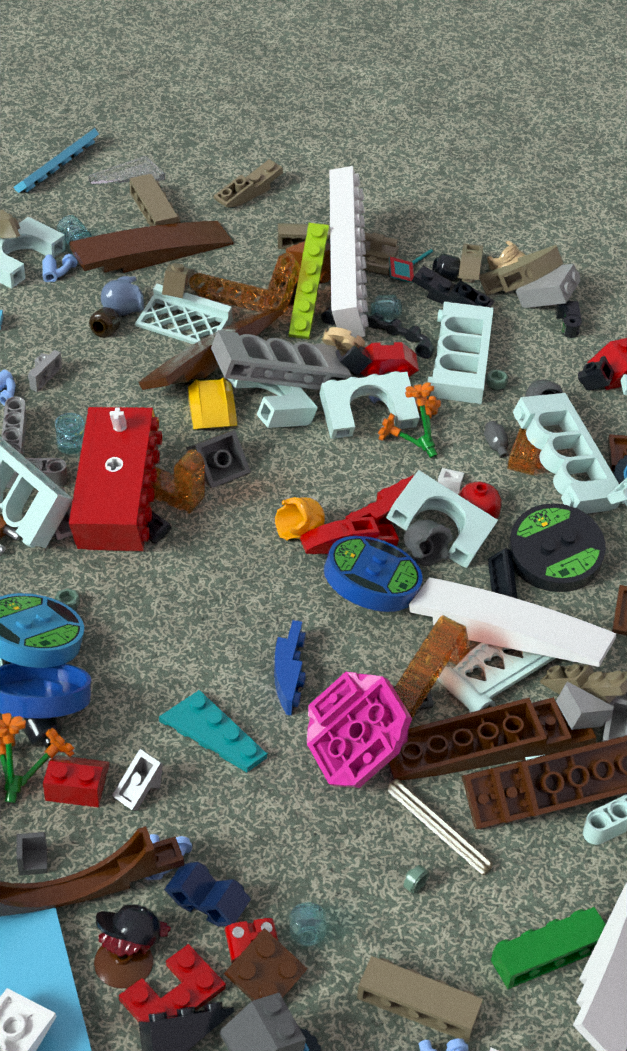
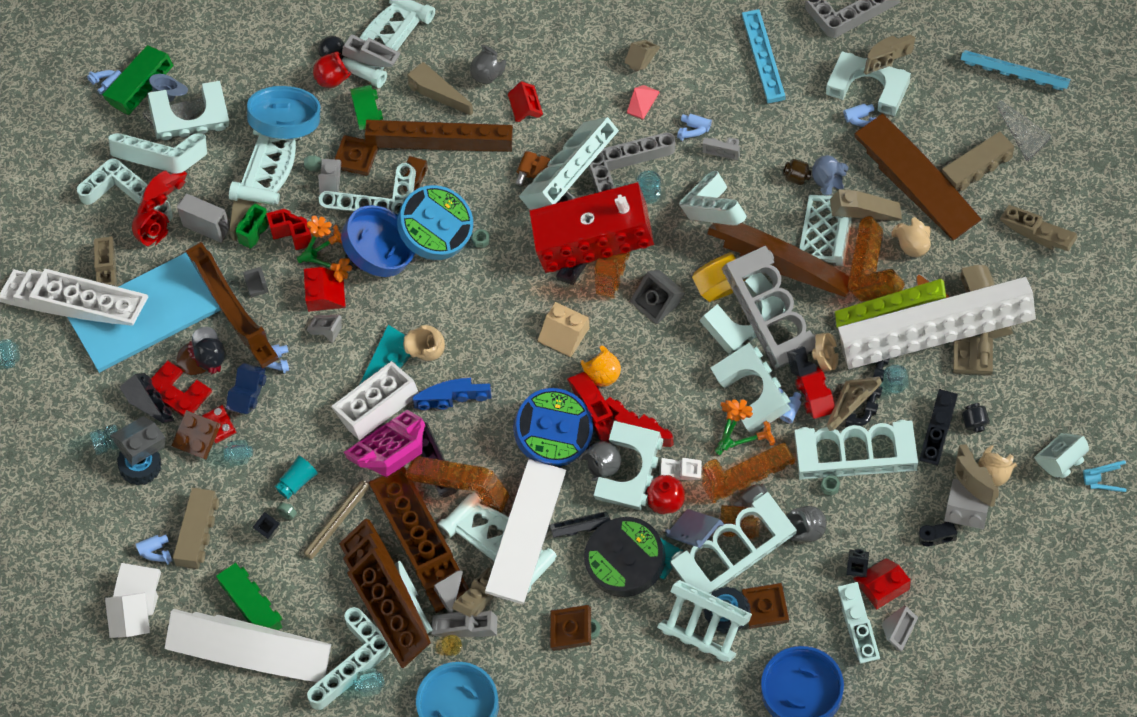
camera: 85 degrees right, 15 degrees up
(72, 229) = (909, 114): clear light blue wheel -> none
(137, 375) = (704, 205): none -> light aqua beam
(211, 671) = (424, 343): none -> tan hair
(229, 259) = (913, 239): none -> tan hair
(233, 545) = (563, 329): none -> tan slope
(276, 743) = (375, 400): none -> white slope
(368, 857) = (295, 477): none -> teal plant
(399, 330) = (850, 398): none -> dark tan wing
(403, 269) = (961, 382): piece -> none
(442, 901) = (267, 526): none -> black brick
(470, 262) = (977, 430): dark tan slope -> none
(477, 438) = (723, 483): none -> clear orange beam
(504, 221) = (1062, 454): none -> light aqua brick
(529, 215) = (1093, 476): none -> medium azure plant
(543, 467) = (693, 528): none -> sand blue door

